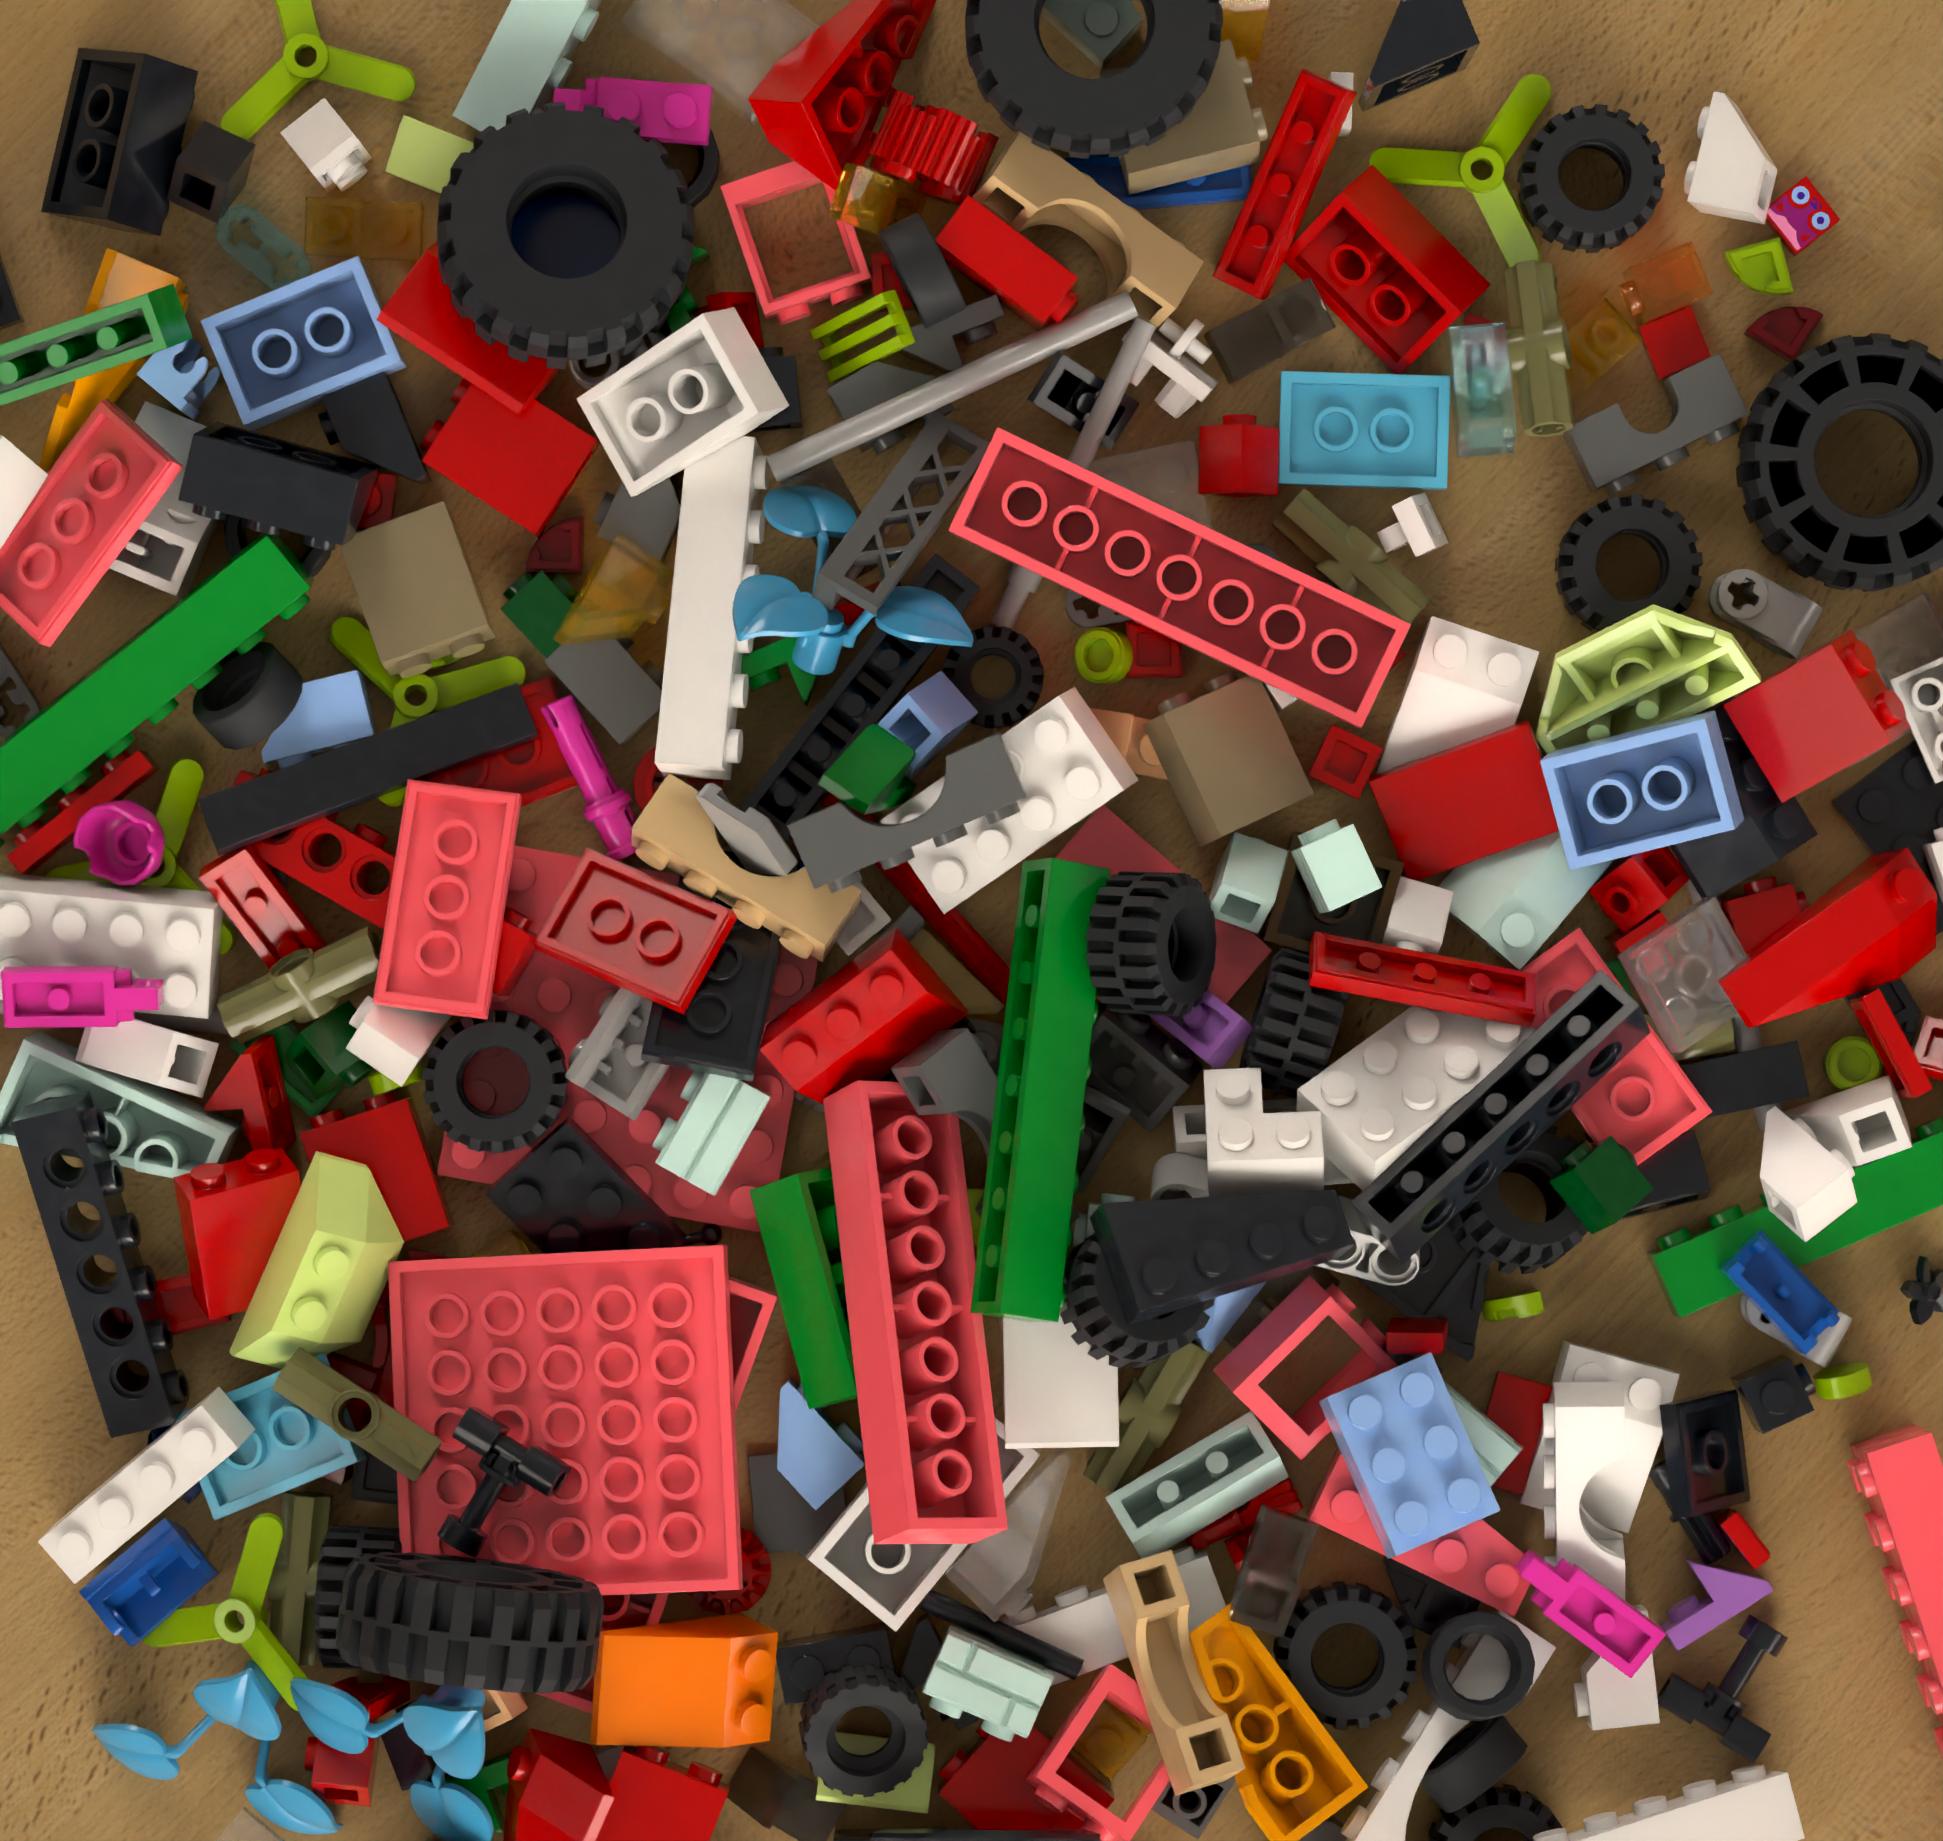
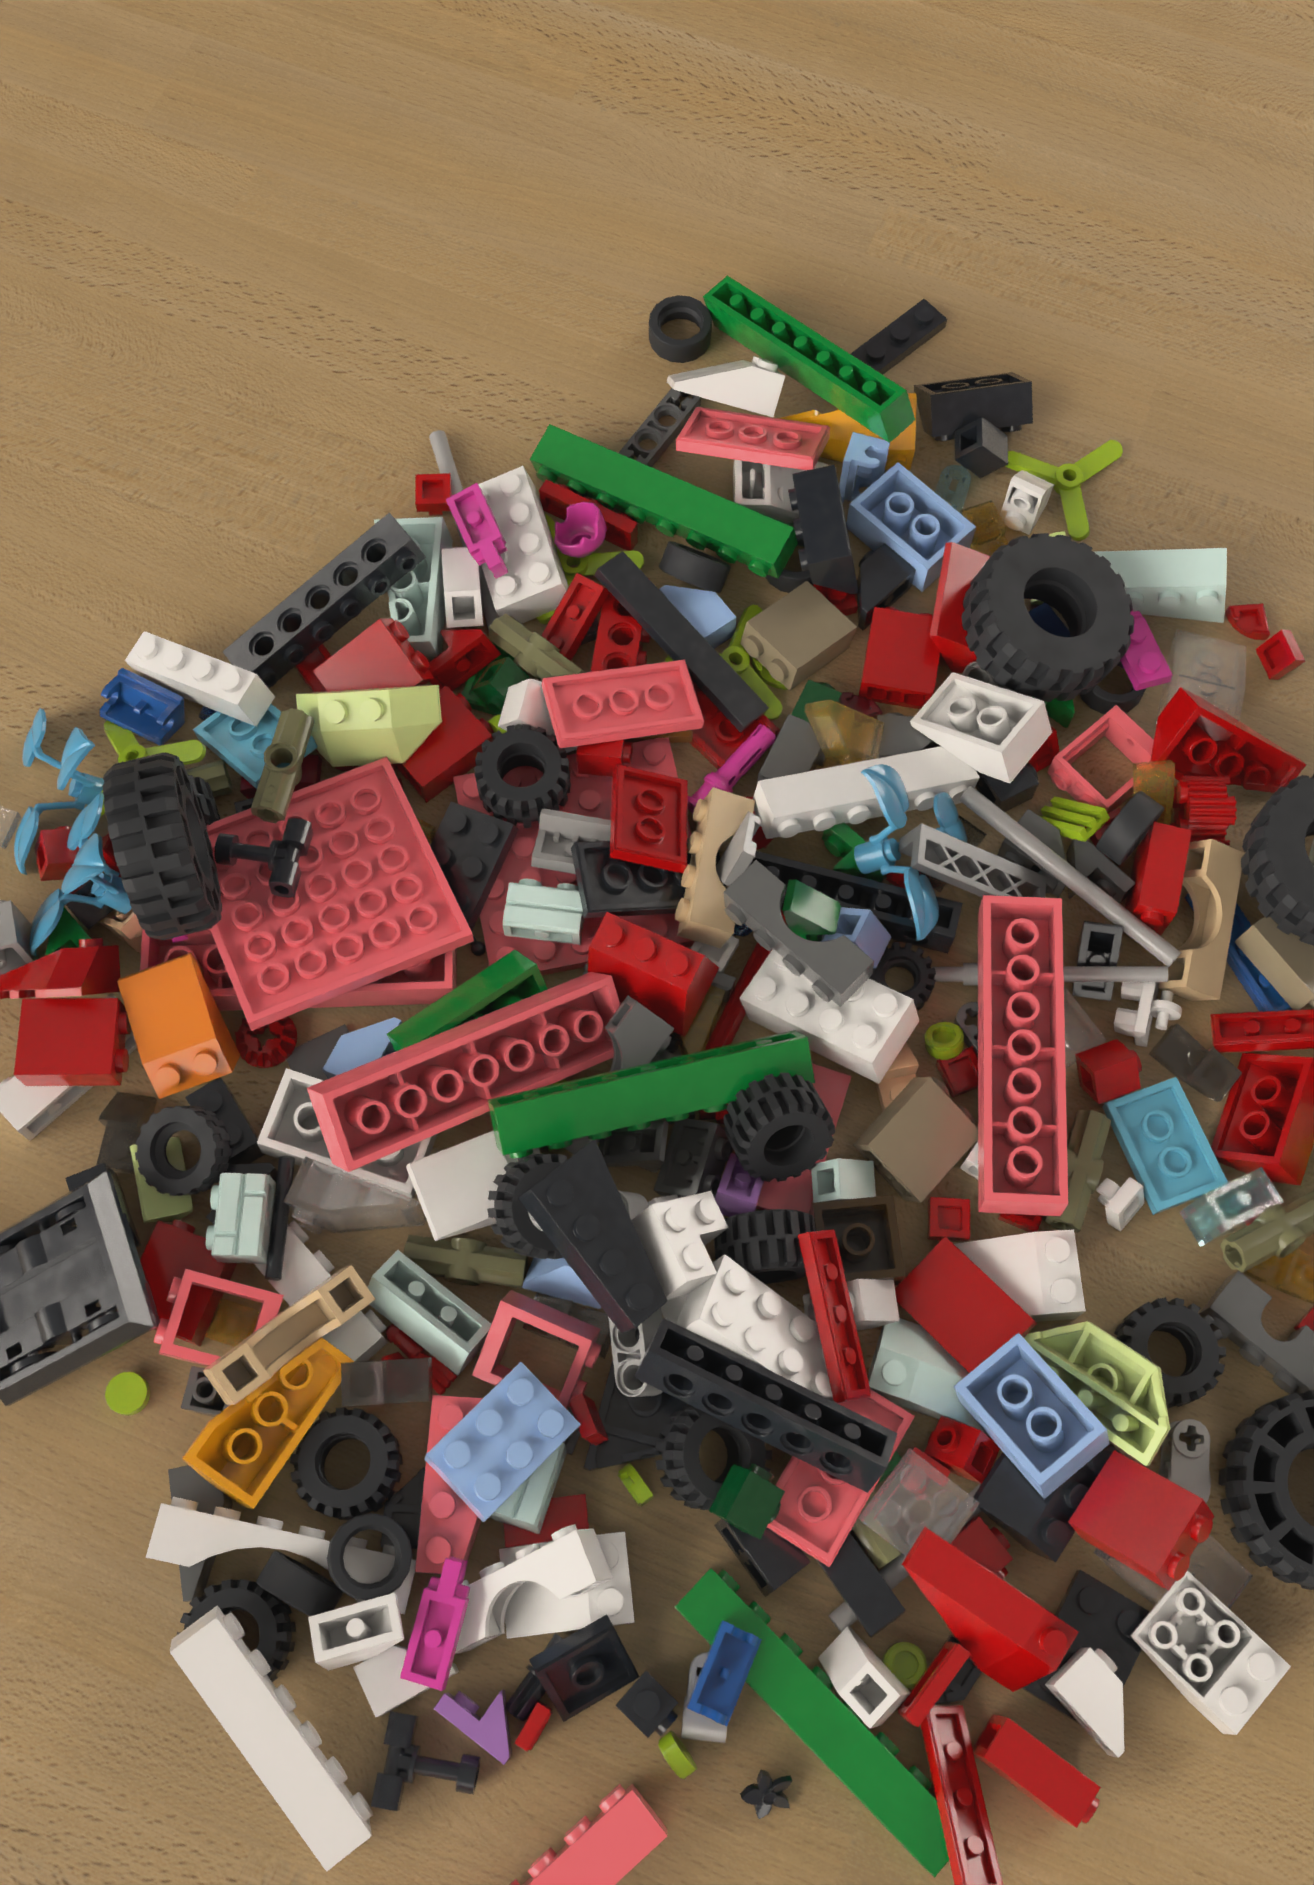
camera: 65 degrees right, 20 degrees down
(1335, 865) = (886, 1212): light aqua brick -> none
(1559, 1711) = (356, 1631): none -> white slope
(1801, 1178) = (811, 1654): white slope -> none

